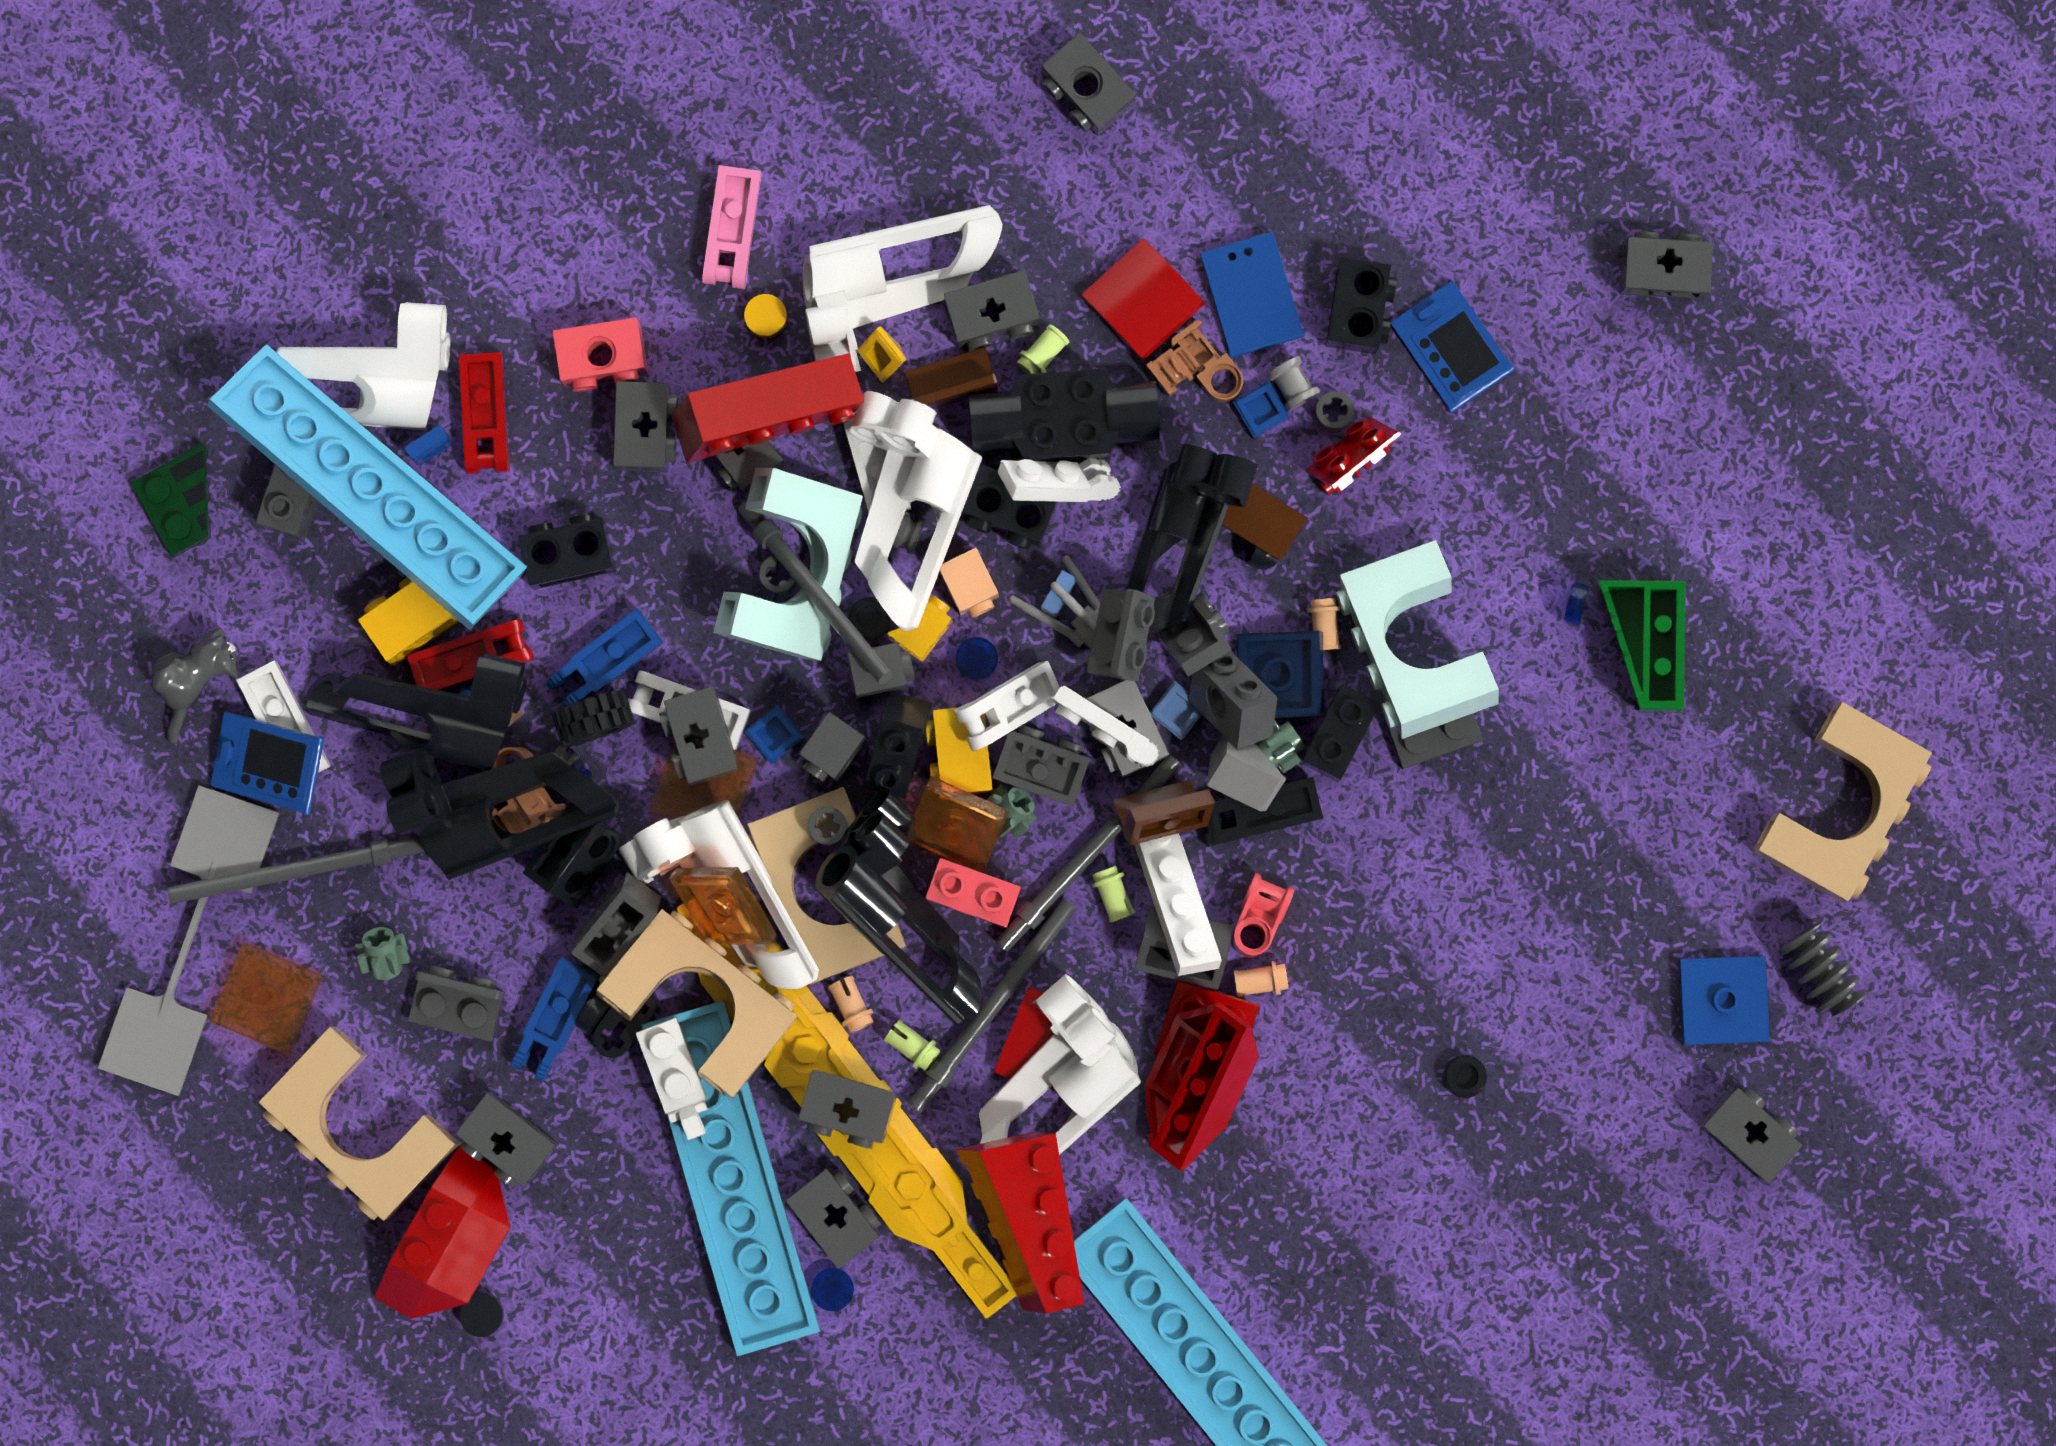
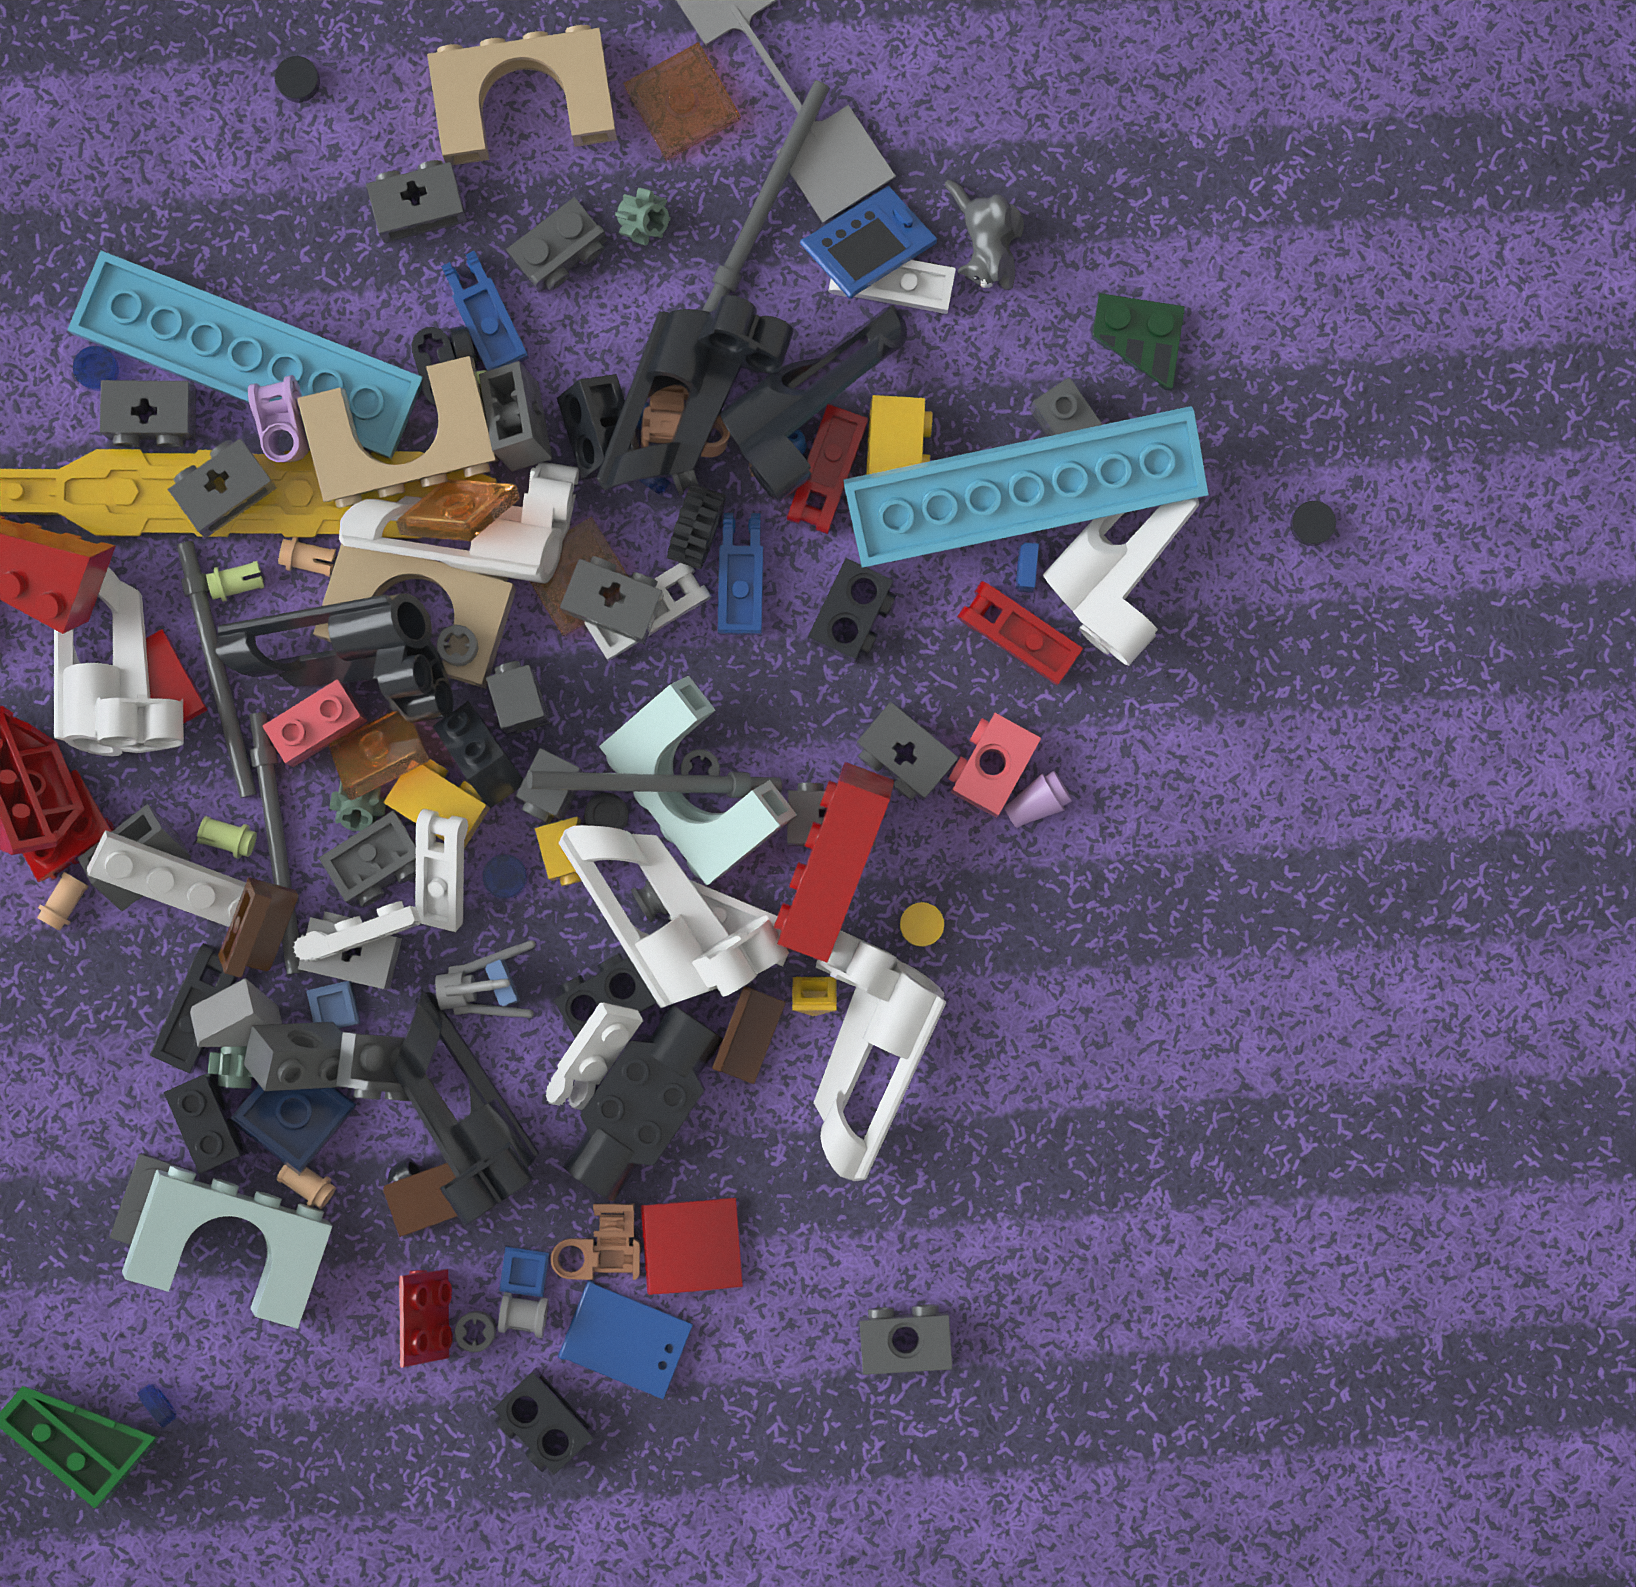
camera: 130 degrees right, 0 degrees up
(225, 257) = (1313, 523): none -> black tile
(448, 1241) = (373, 96): red wedge -> none
(601, 299) = (1038, 800): none -> lavender cone
(674, 1075) = (358, 370): white hinge -> none
(732, 225) = (1018, 954): bright pink plate -> none
(758, 1106) = (278, 416): none -> lavender piece
(774, 734) = (573, 665): blue tile -> none
(969, 583) = (568, 917): light nougat brick -> none
(971, 302) = (777, 1140): dark grey brick -> none
(1042, 351) = (713, 1128): yellowish green pin -> none
(1121, 634) = (422, 1005): dark grey bracket -> none
(1261, 913) = (114, 943): coral piece -> none
(1452, 347) = (452, 1473): blue container -> none

